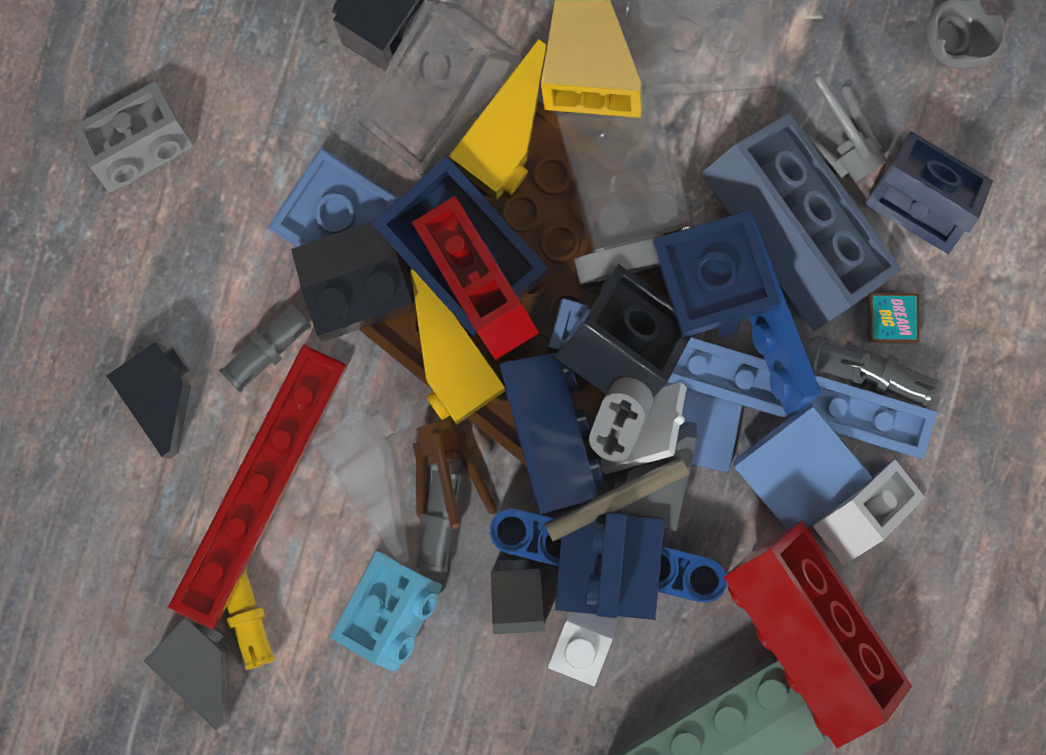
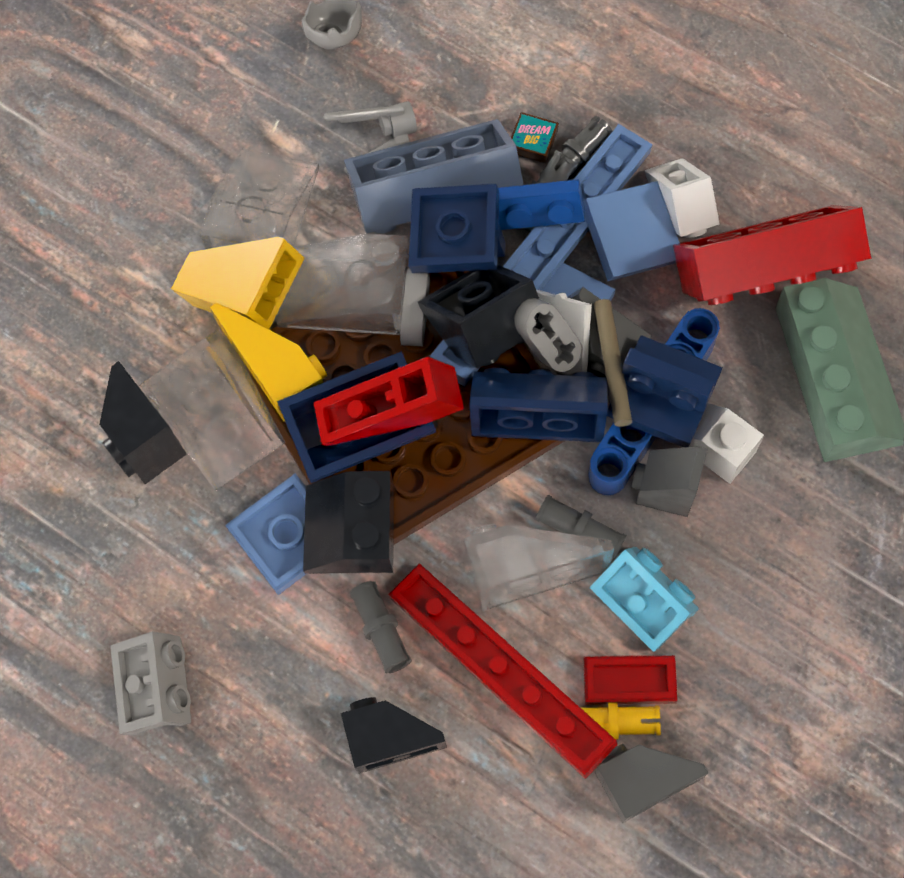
camera: 65 degrees left, 15 degrees down
(296, 622) = (630, 680): none -> red tile
(439, 444) = (517, 503): reddish brown plant -> none
(452, 362) = (446, 464): yellow slope -> none
(930, 193) = (448, 79): dark blue bracket -> none

